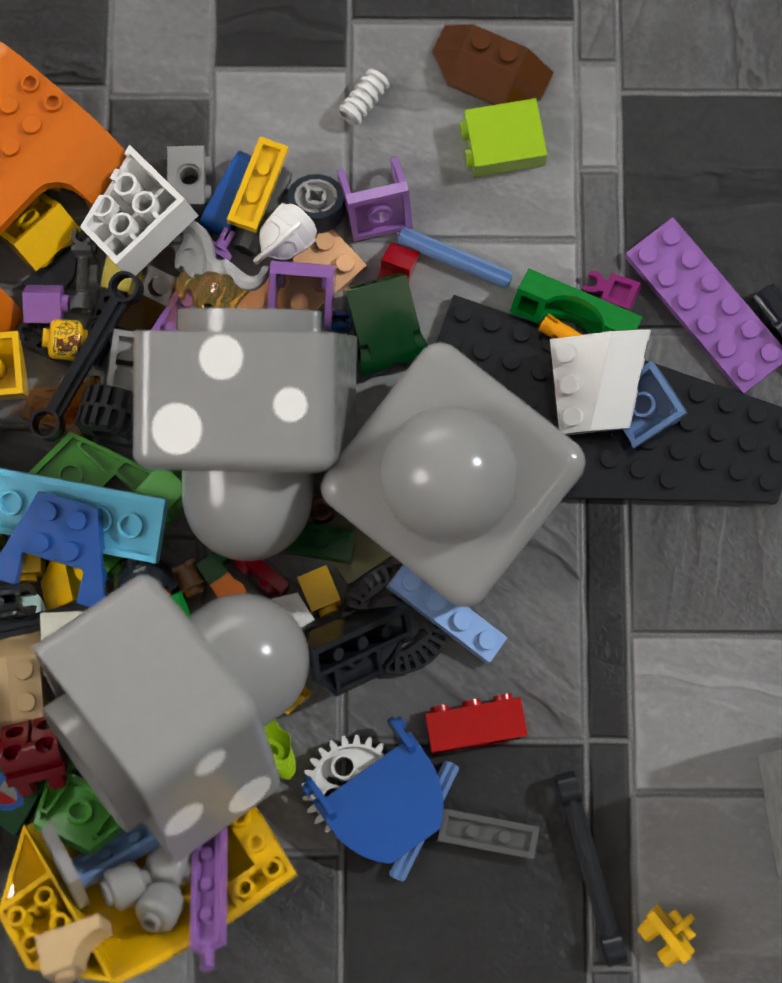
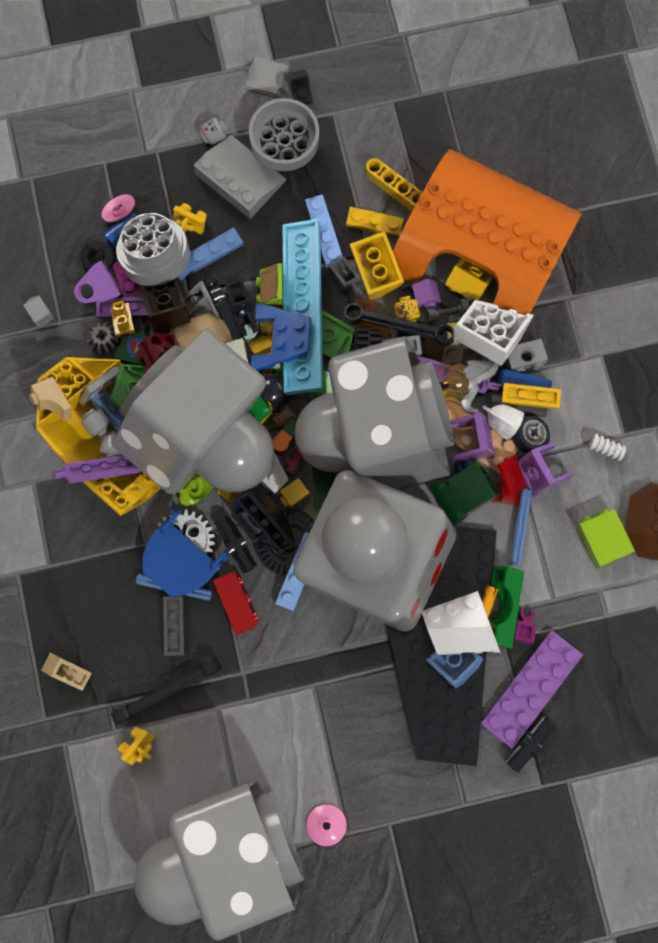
camera: 75 degrees right, 0 degrees up
(160, 907) = (87, 444): light grey head -> none
(374, 247) = (512, 475): none -> red piece
(379, 704) = (235, 544): none -> black piece

